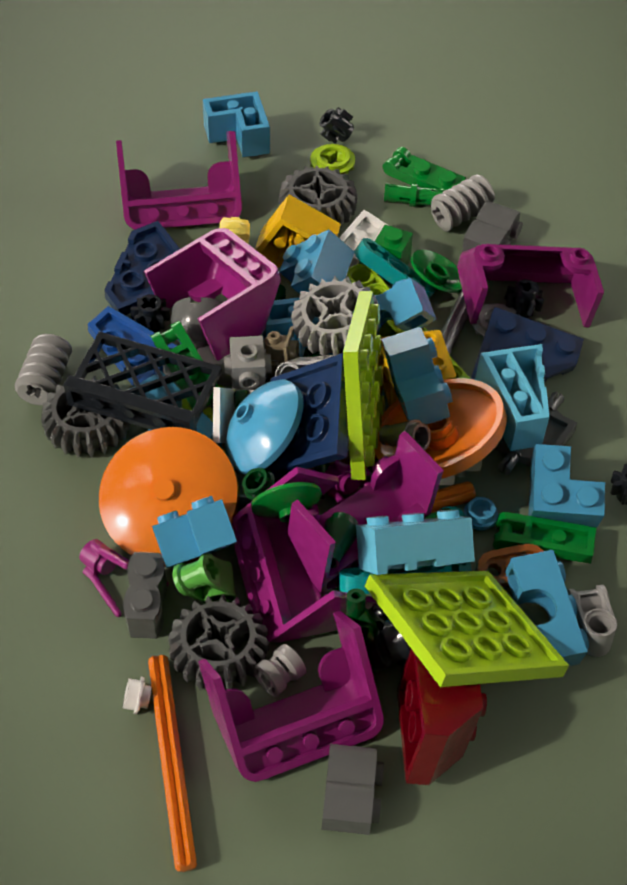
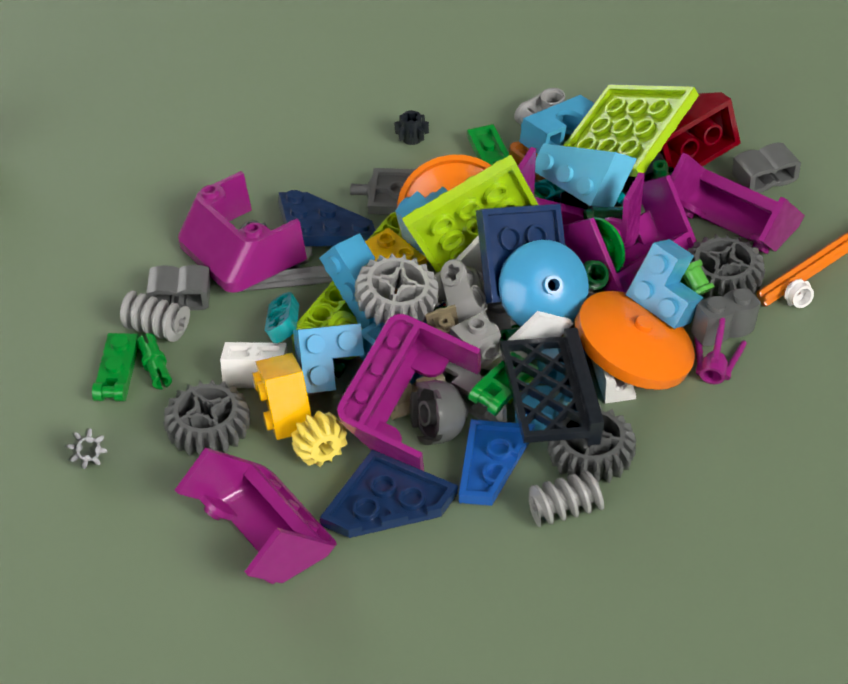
camera: 115 degrees left, 5 degrees down
(151, 312) = (444, 462): black gear -> none
(239, 114) = (129, 517): dark azure brick -> none
(280, 670) = (710, 227): light grey wheel -> none
(327, 153) = (124, 434): lime gear -> none
(396, 242) = (250, 327): green brick -> none
(436, 270) = (257, 299): green dish -> none
(519, 381) = (375, 190): medium azure wedge -> none
(556, 496) = (452, 137): dark azure brick -> none

